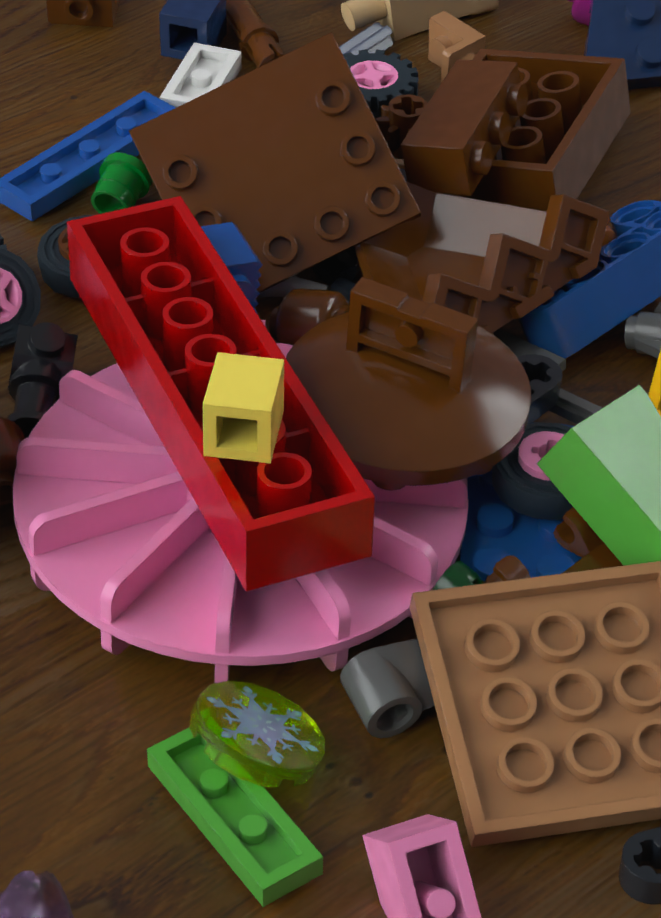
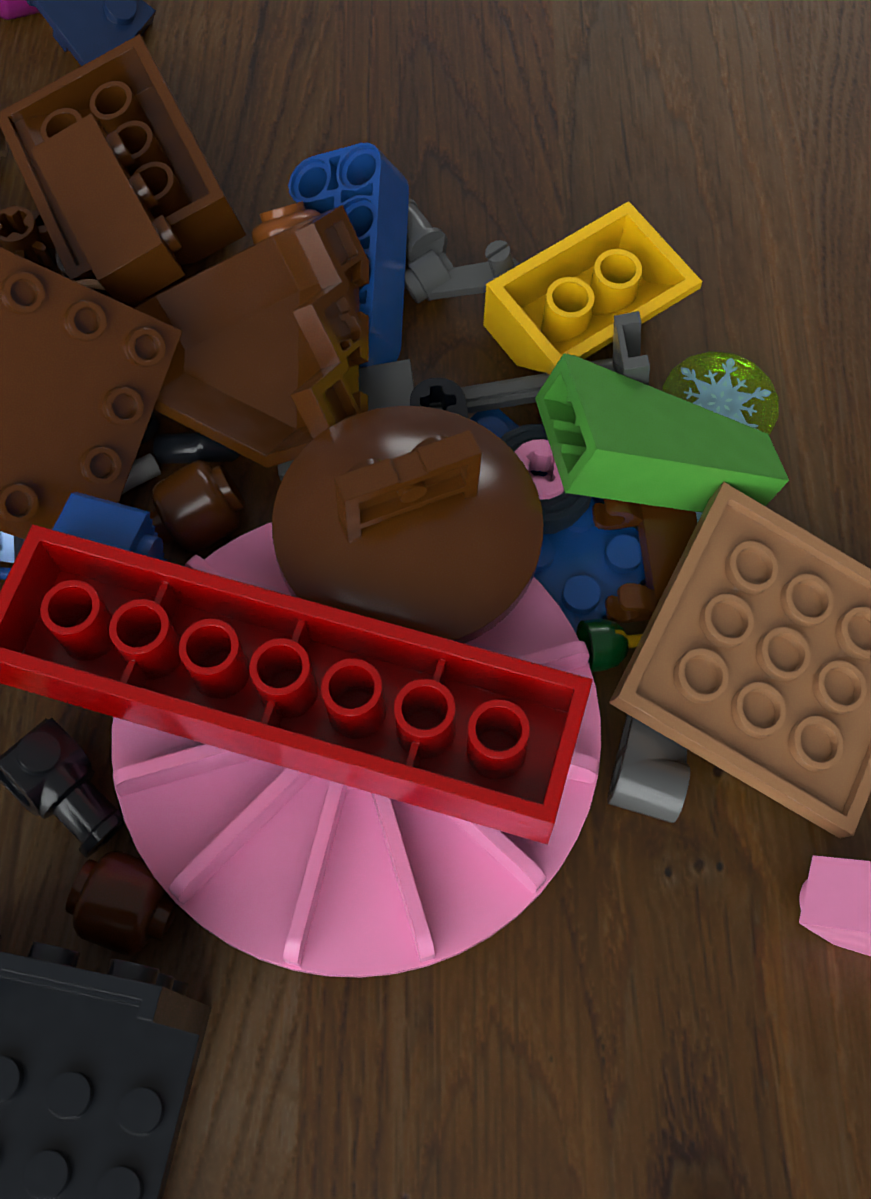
camera: 50 degrees left, 25 degrees up
(236, 819) = (683, 996): bright green plate -> none
(243, 407) = (418, 710): light yellow brick -> none
(257, 734) = (627, 920): clear neon green tile -> none

